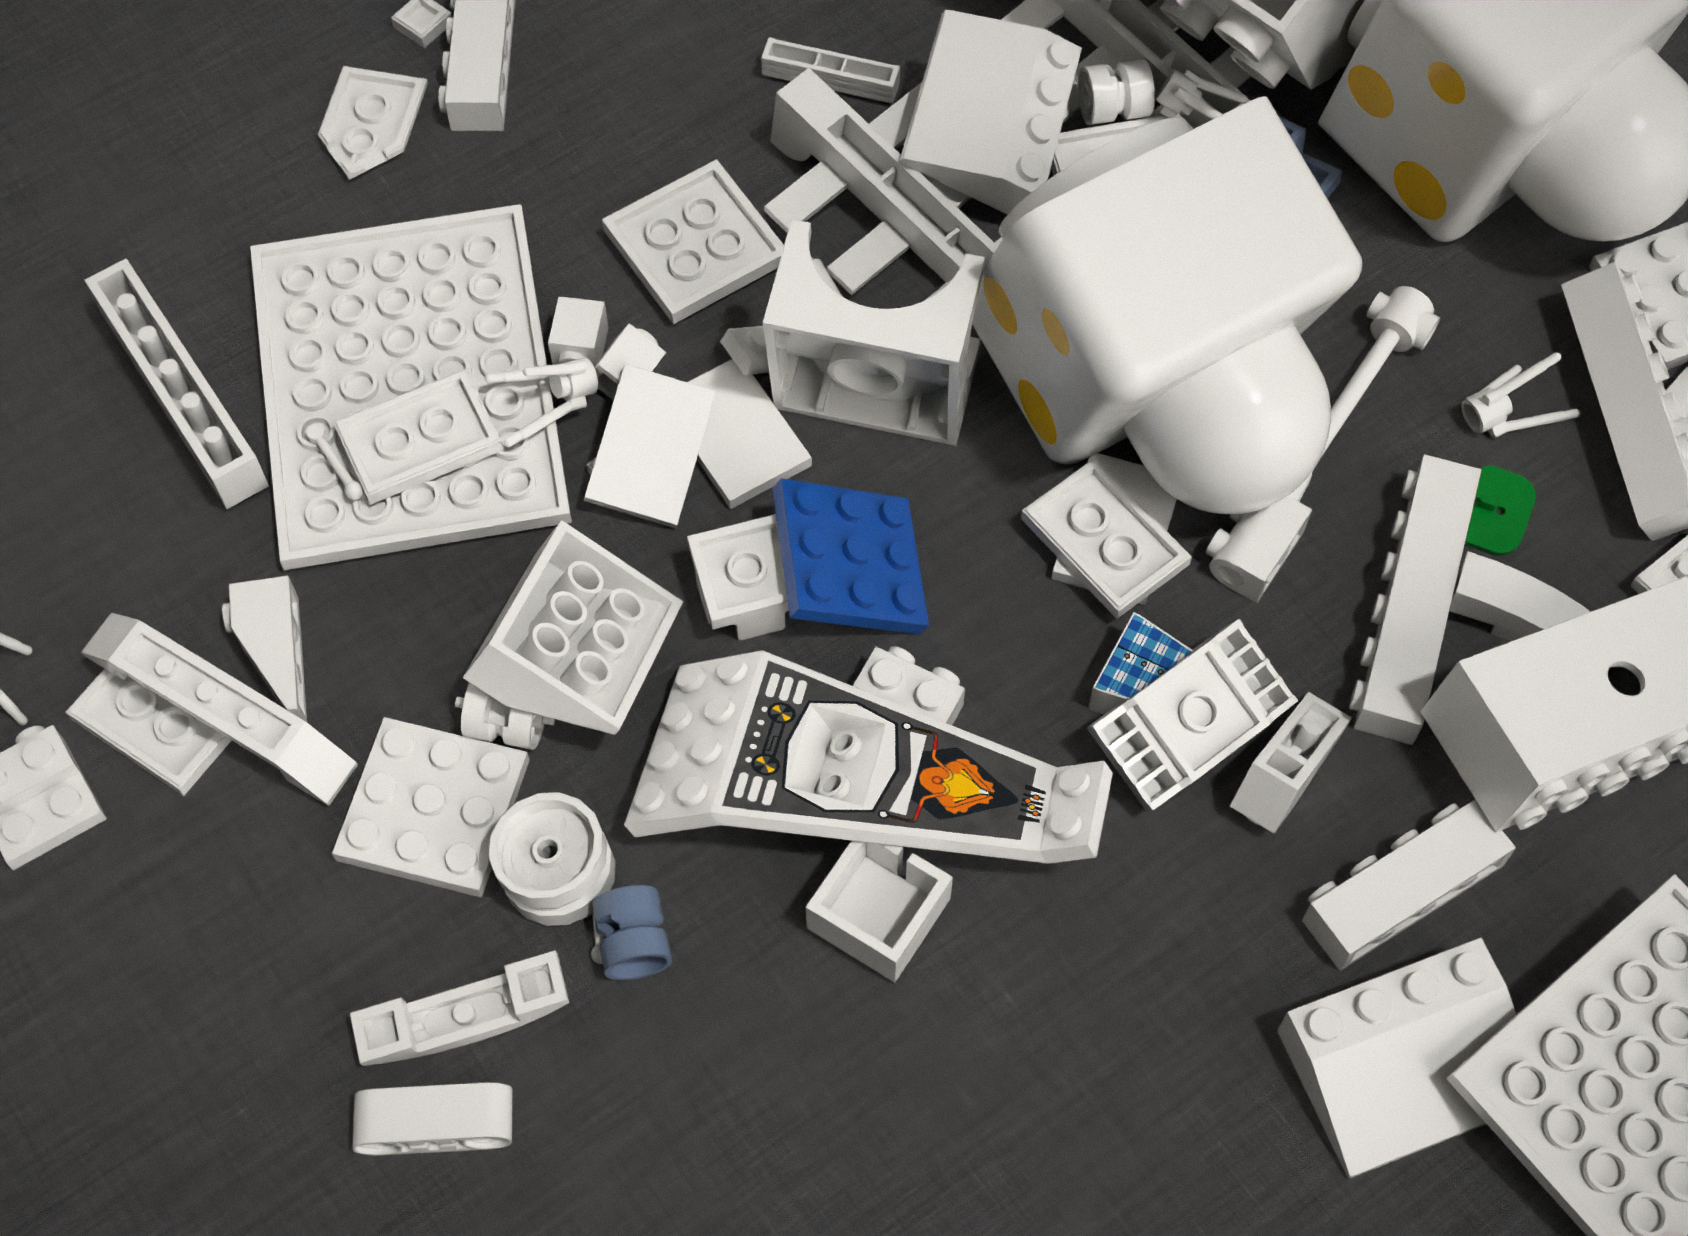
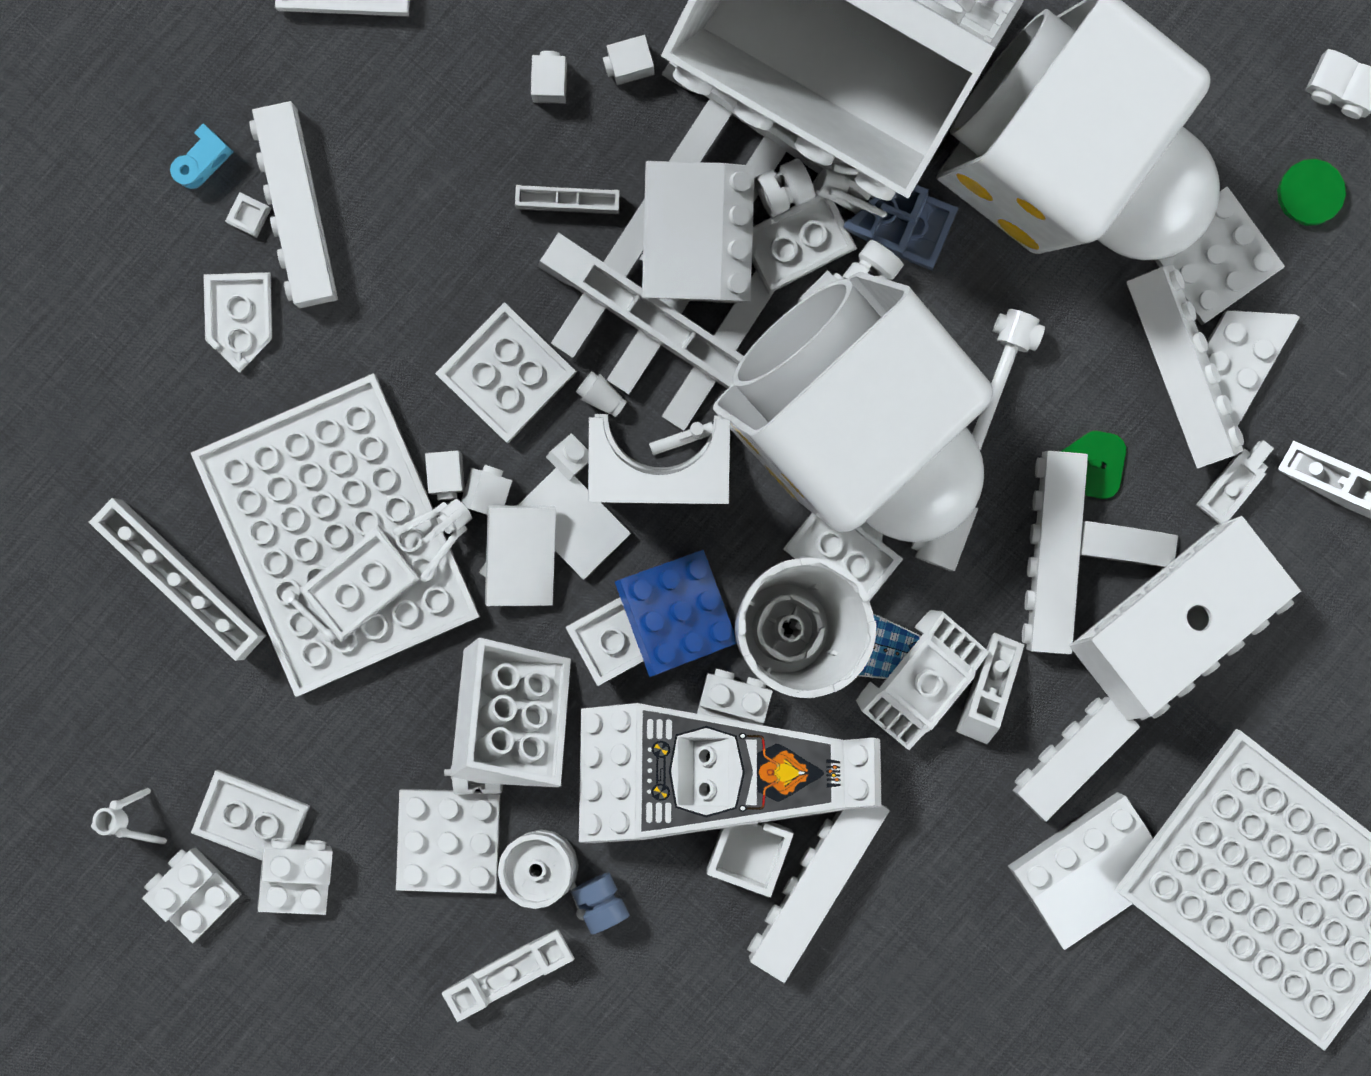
camera: 15 degrees left, 25 degrees up
(190, 798) = (295, 877): none -> white plate
(223, 703) = (288, 816): white slope -> none
(268, 629) = (306, 752): white slope -> none
(432, 1119) = (511, 1044): white beam -> none
(970, 984) = (814, 889): none -> white brick
(1025, 567) = (829, 625): none -> white cone
(1491, 405) = (1086, 389): white plant -> none

